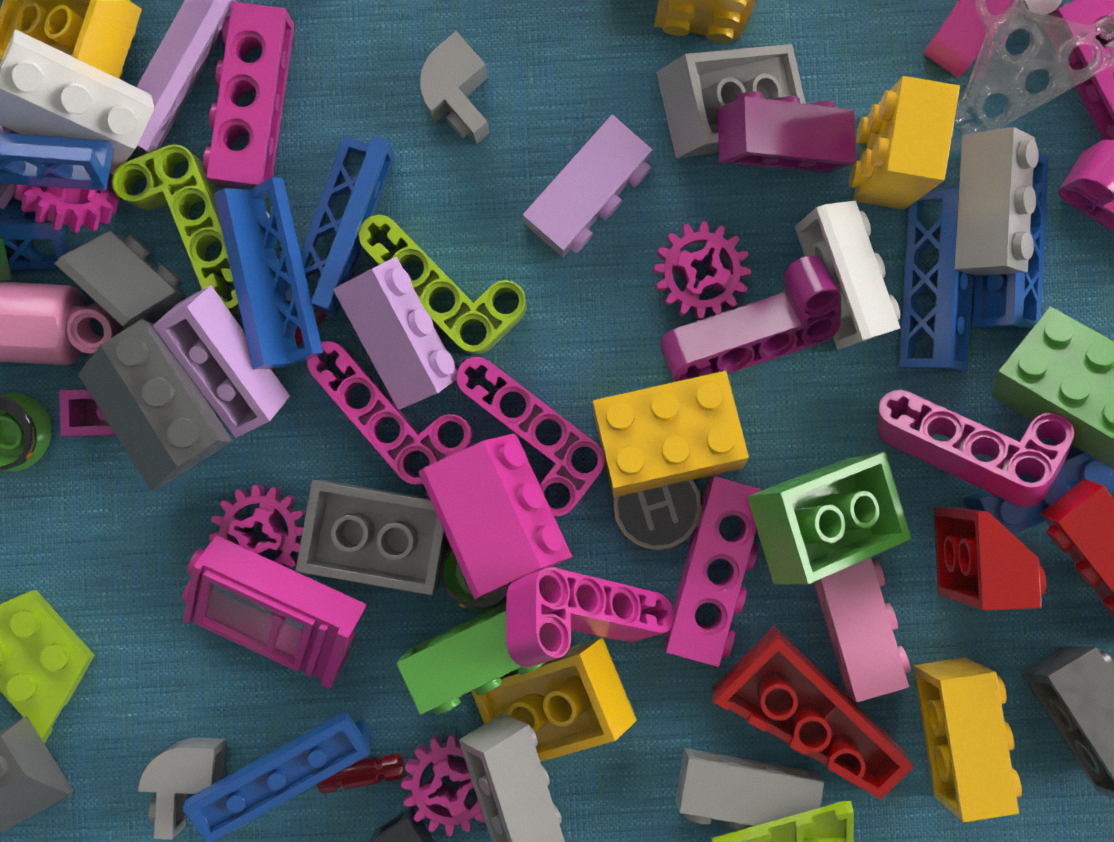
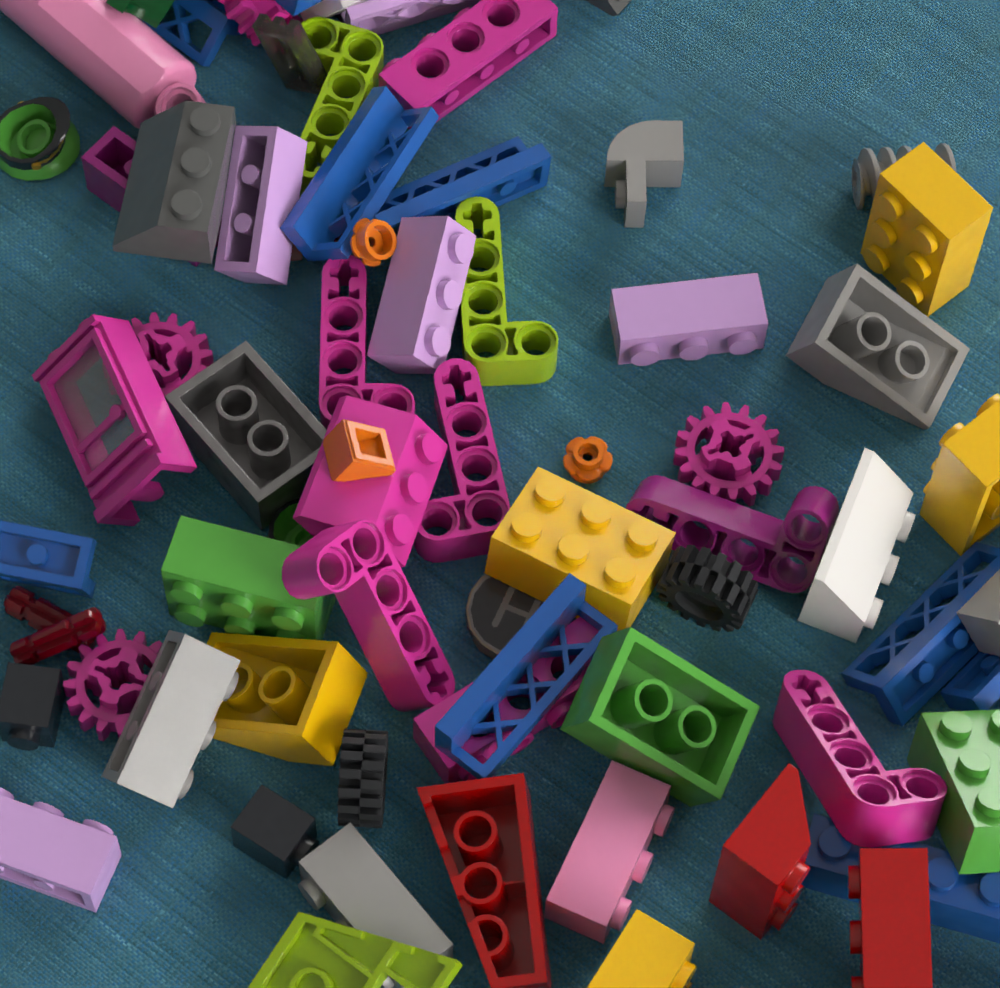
camera: 40 degrees right, 25 degrees down
(123, 279) = (241, 80): dark grey slope -> none
(128, 216) = (291, 53): none -> clear smoke tile
(338, 323) = (382, 241): none -> orange plate
(381, 790) = (58, 637): none -> dark red axle
(475, 511) = (357, 452): none -> orange slope
(601, 362) = (583, 470): none -> orange plate
(641, 795) = (274, 832): none -> black brick
(668, 719) = (362, 778): none -> black tyre
(707, 574) = (509, 667): none -> blue fence
(776, 390) = (707, 588): none -> black tyre
(786, 133) = (892, 393): magenta brick -> none

